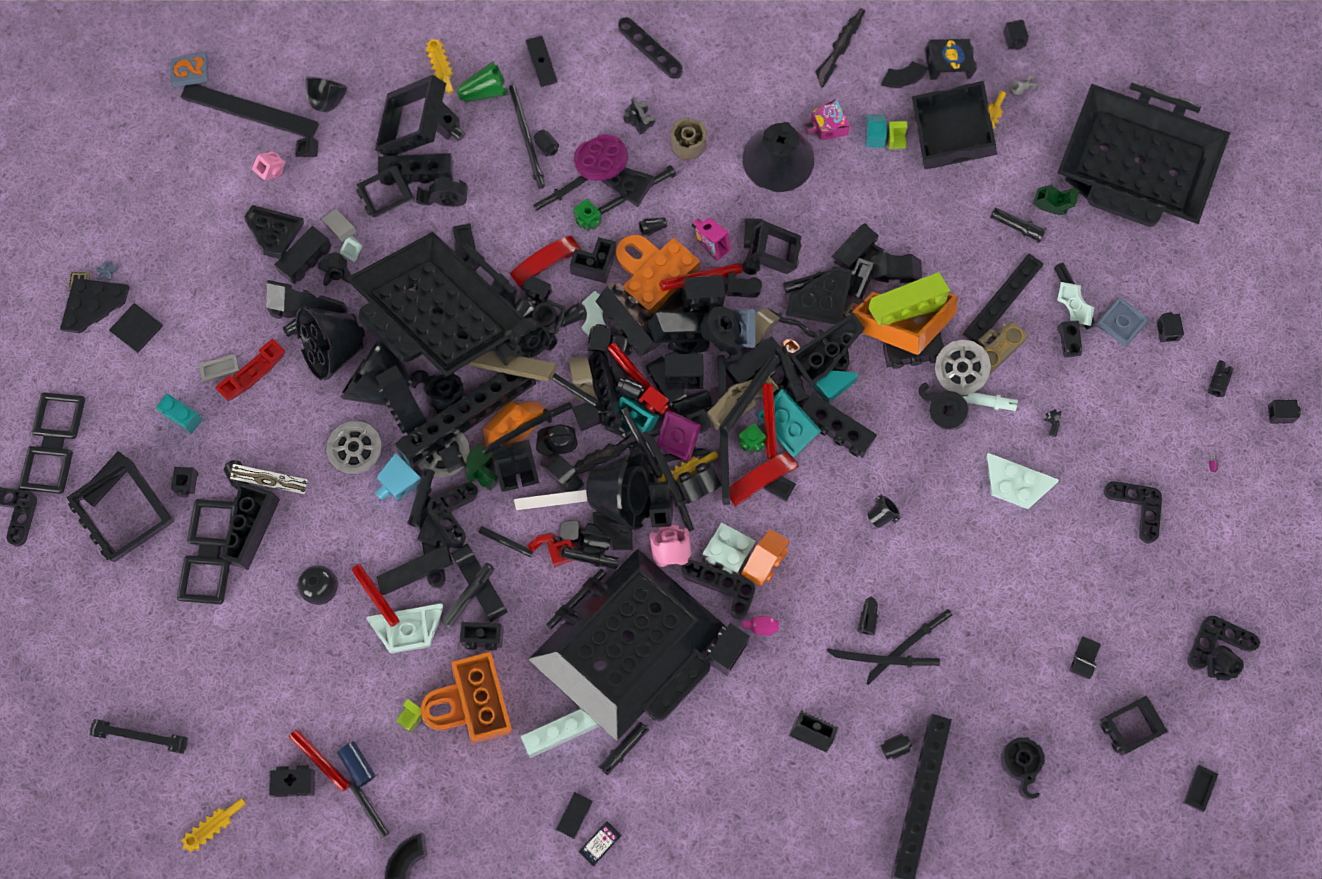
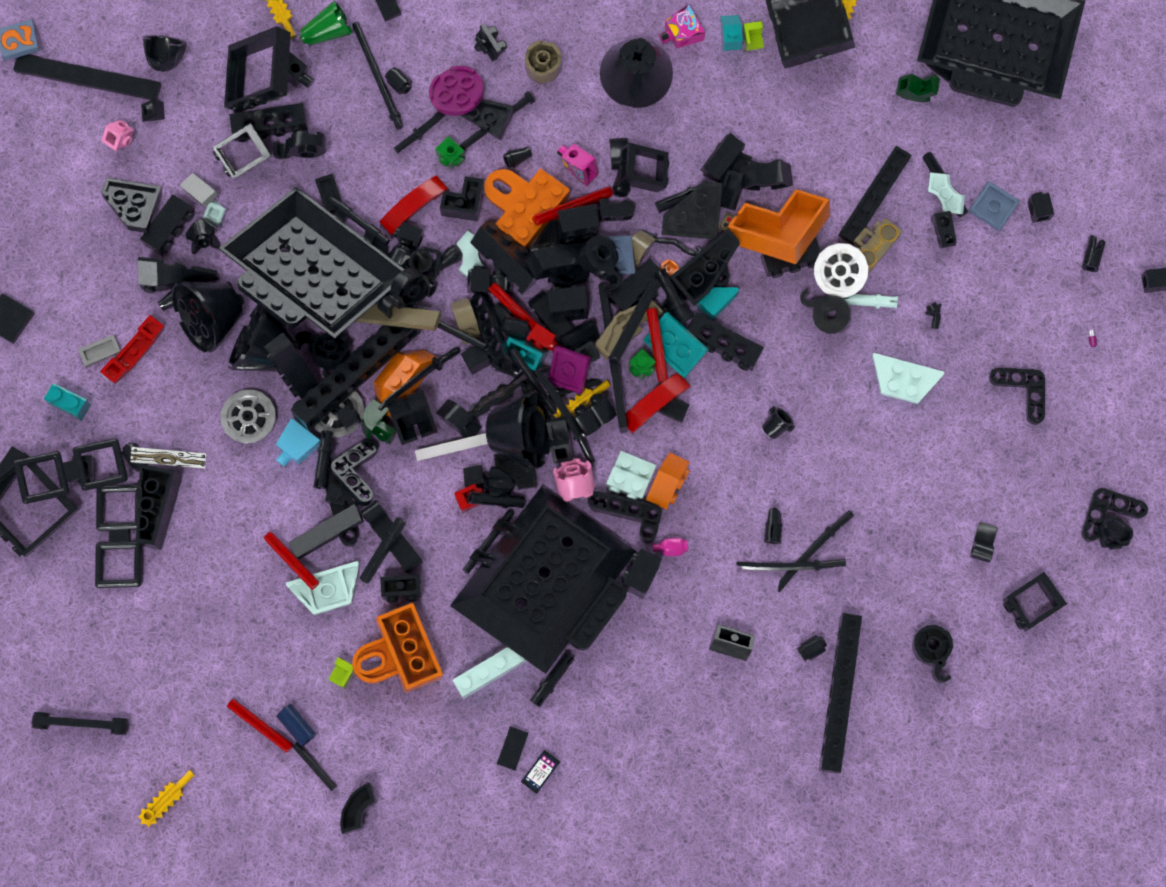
camera: 10 degrees left, 5 degrees up
(169, 480) = (70, 471): none -> black bar
(280, 786) = (248, 751): black brick -> none
(317, 585) = (232, 556): black cylinder -> none
(505, 541) = (412, 493): black bar -> none
(540, 539) = (447, 486): red arm -> none
(556, 439) = (448, 385): black piece -> none
(910, 300) = (783, 210): lime wedge -> none
(1027, 228) = (892, 120): black pin -> none
(1200, 788) = (1102, 653): black tile -> none

